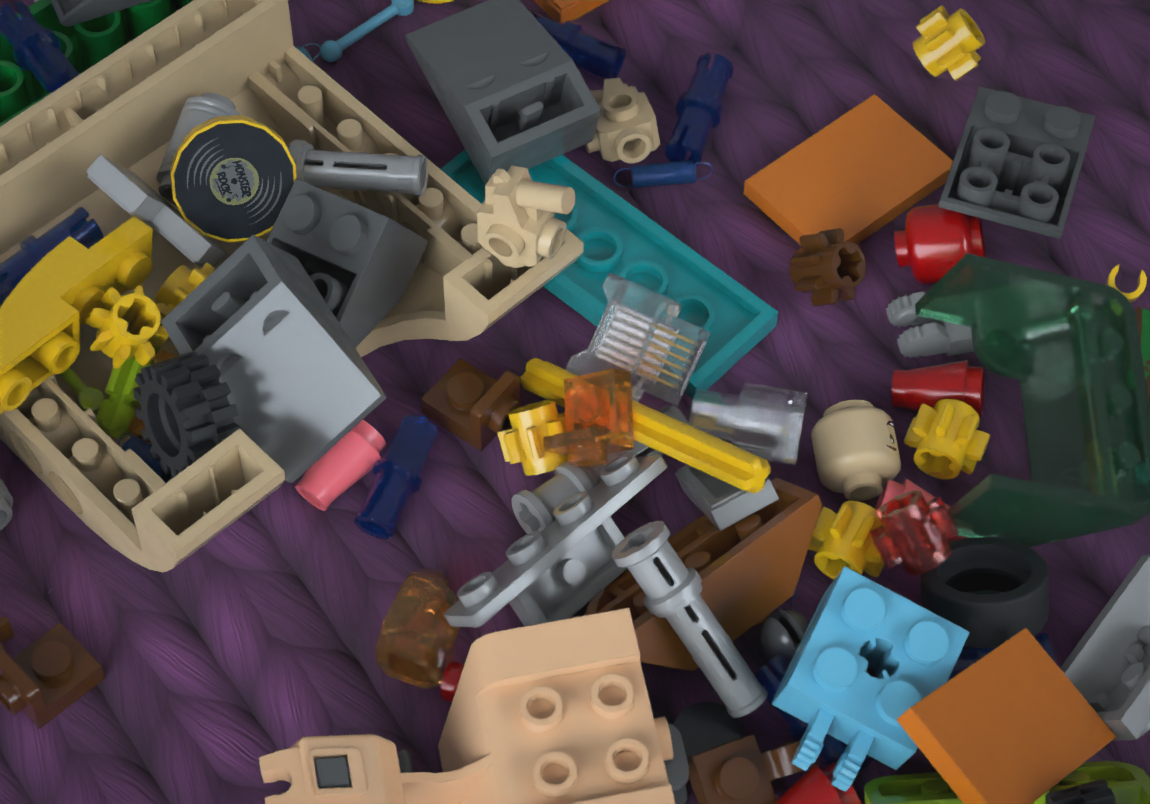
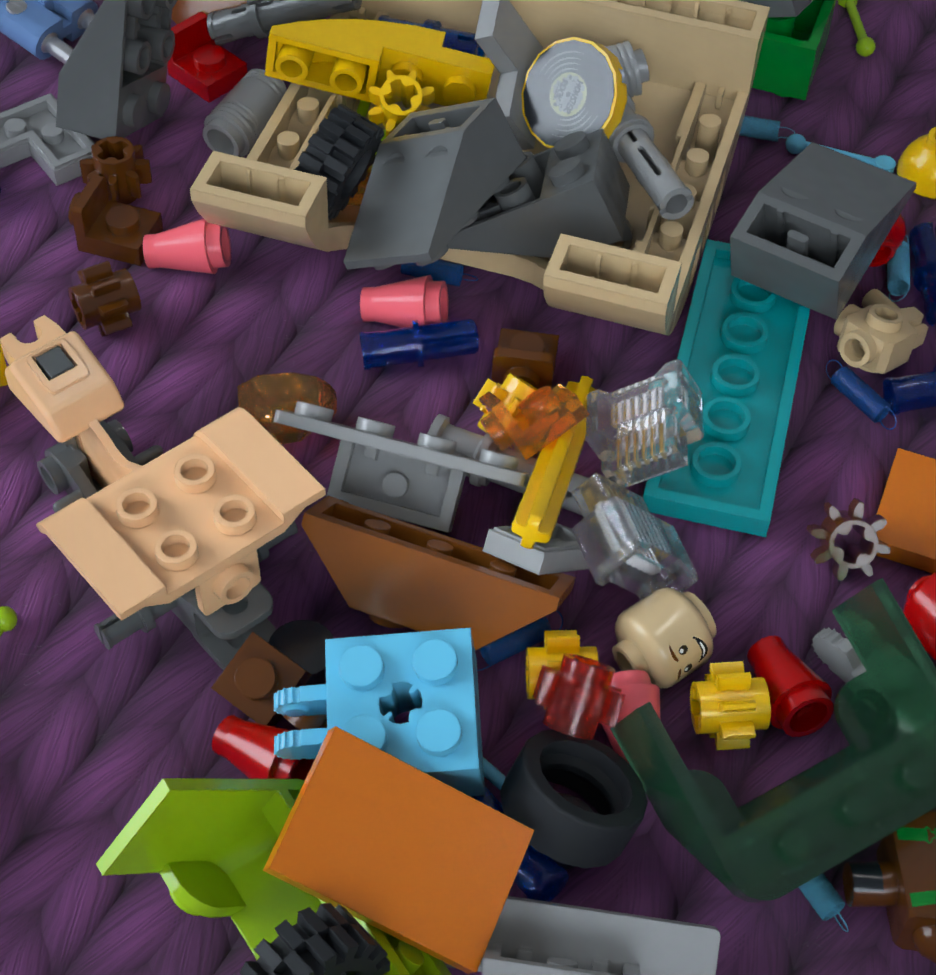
camera: 60 degrees right, 5 degrees down
(132, 615) = (189, 247): none -> coral cone
(164, 721) = (104, 298): none -> reddish brown gear
(520, 219) = (627, 228): tan piece -> none
(671, 589) = (372, 526): light grey pin -> none

